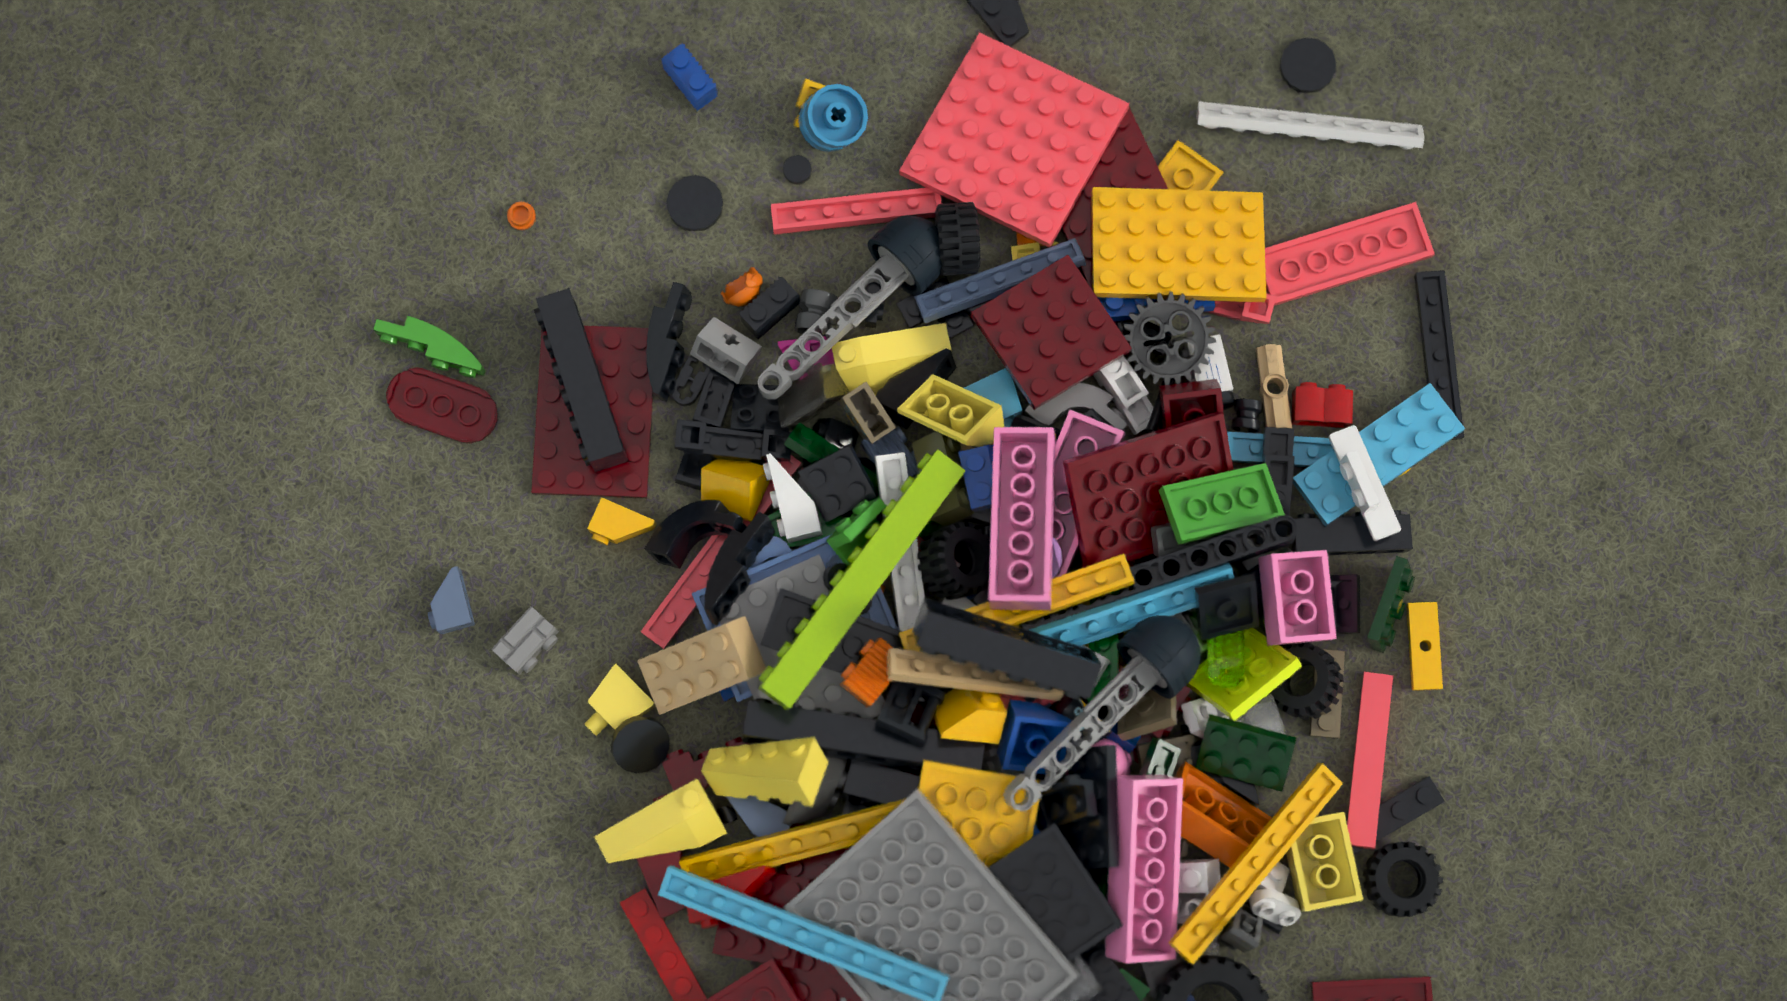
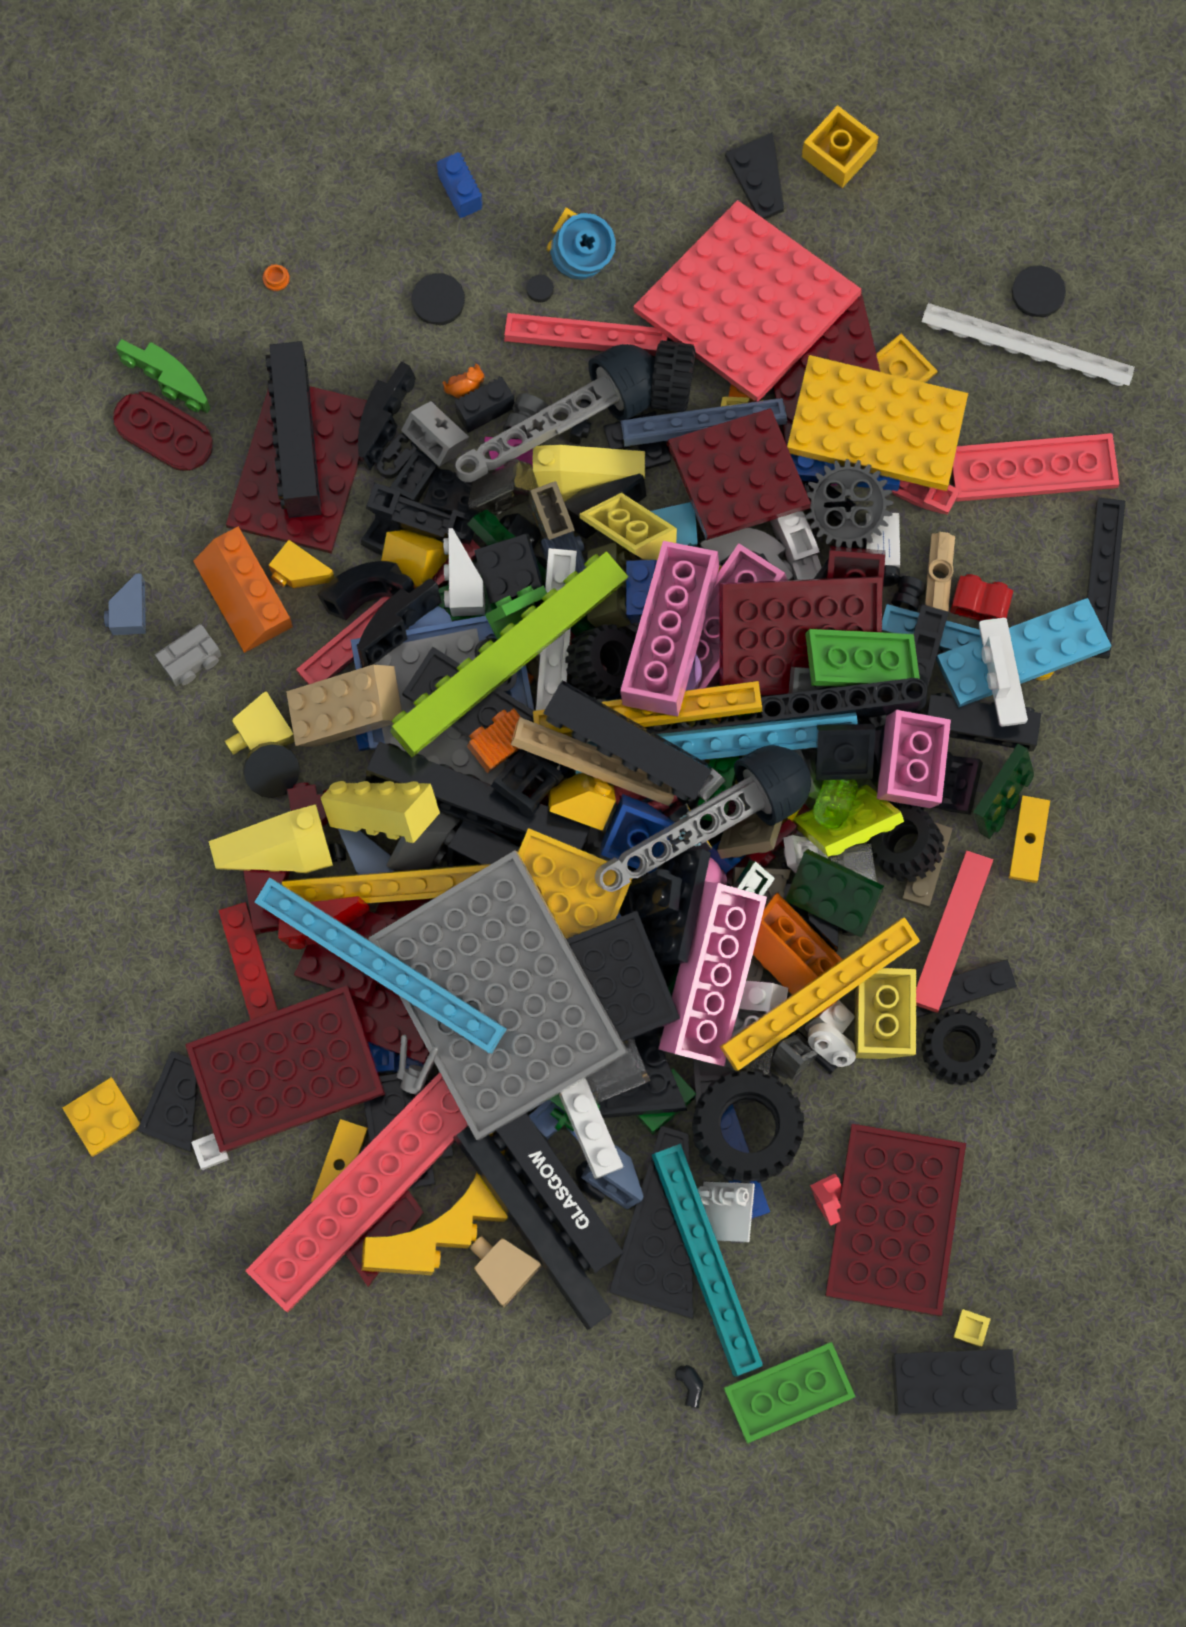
camera: 15 degrees right, 5 degrees down
(564, 559) = (242, 590): none -> orange slope

